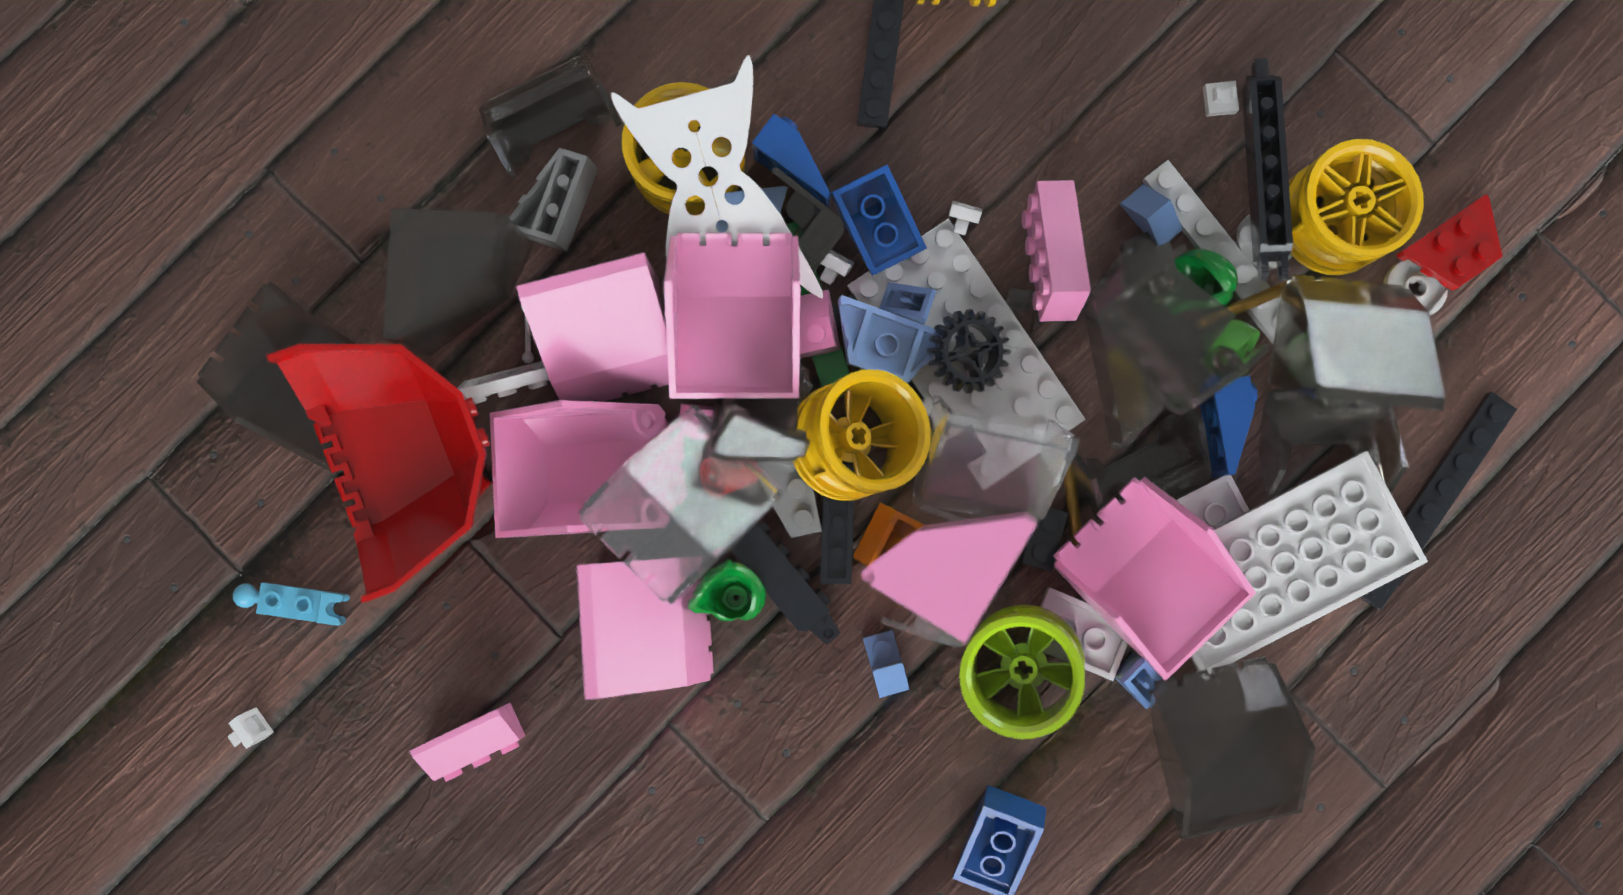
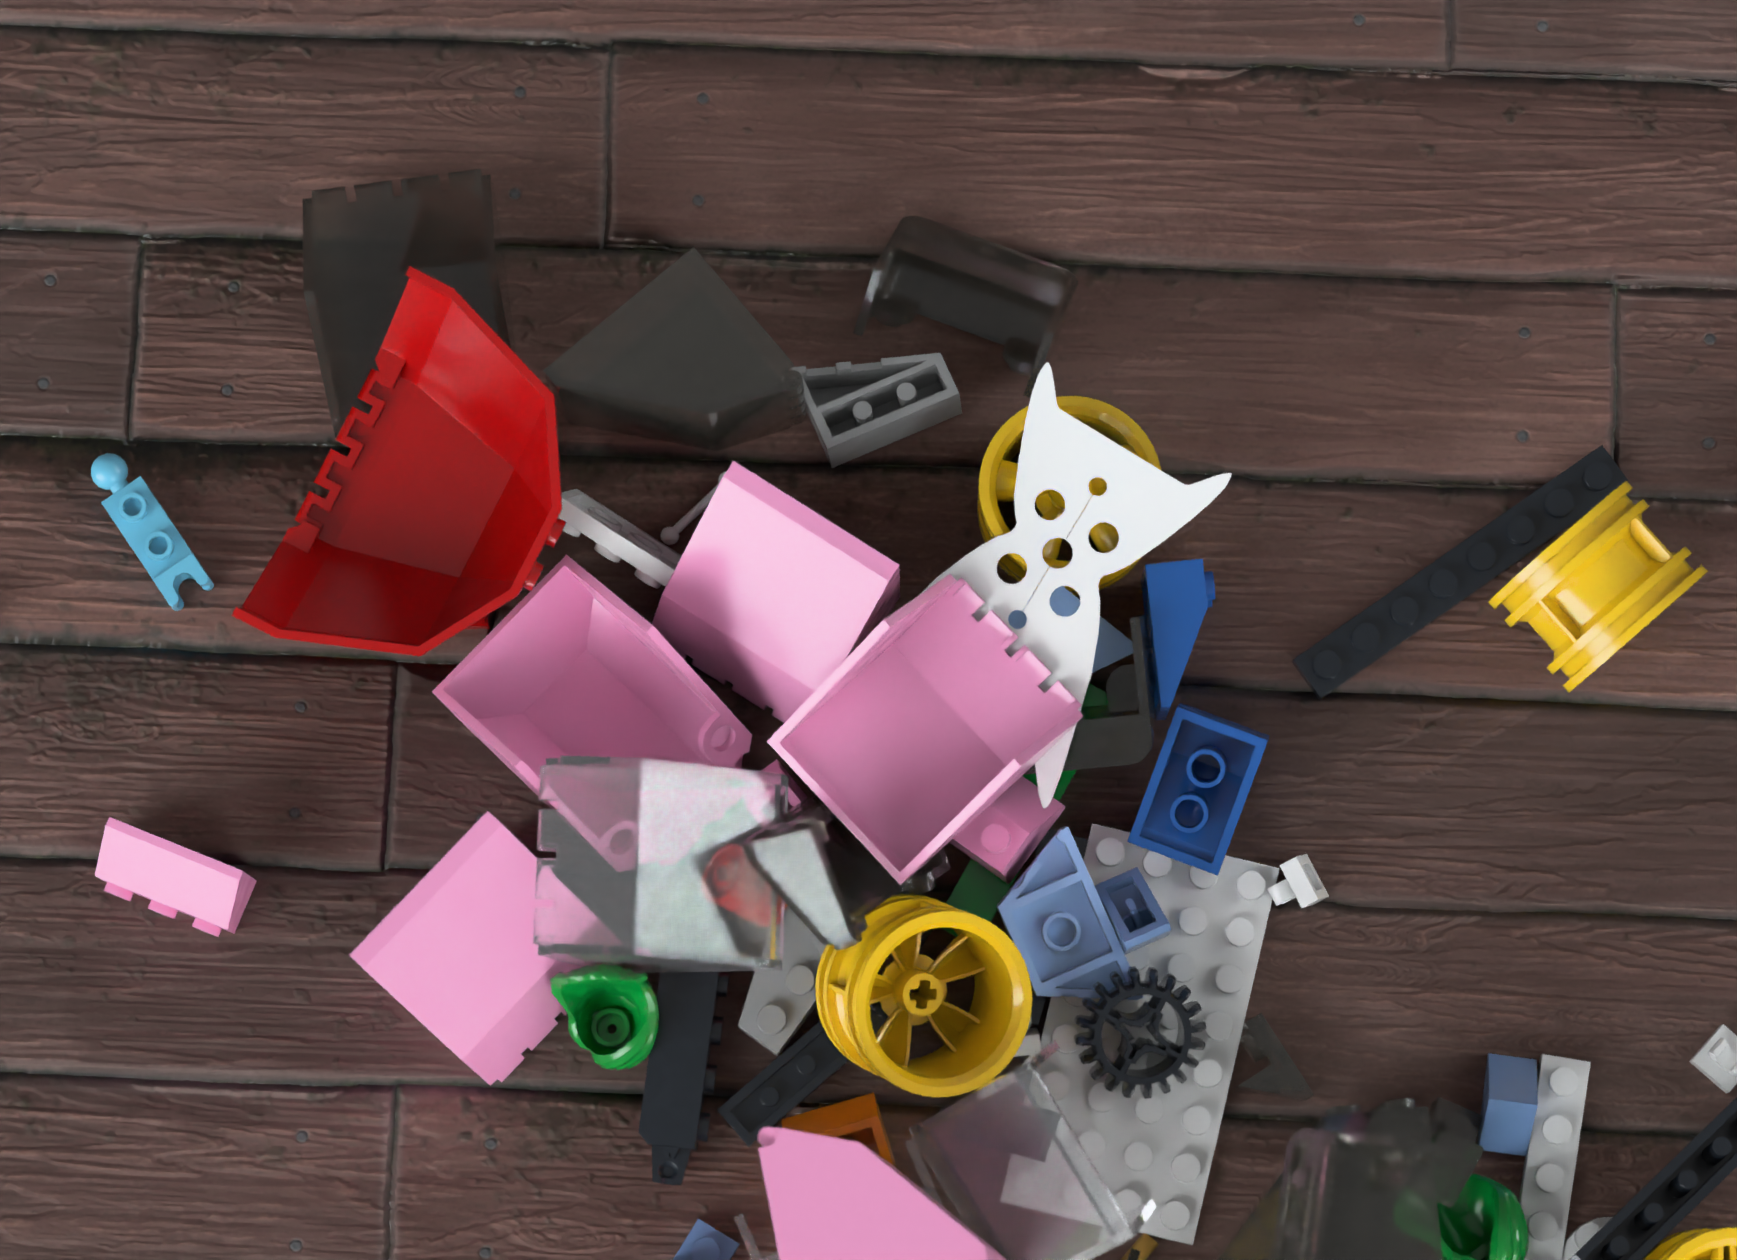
camera: 50 degrees right, 5 degrees down
(835, 264) = (1102, 787): white tile -> none
(1056, 251) = (1347, 1024): bright pink brick -> none

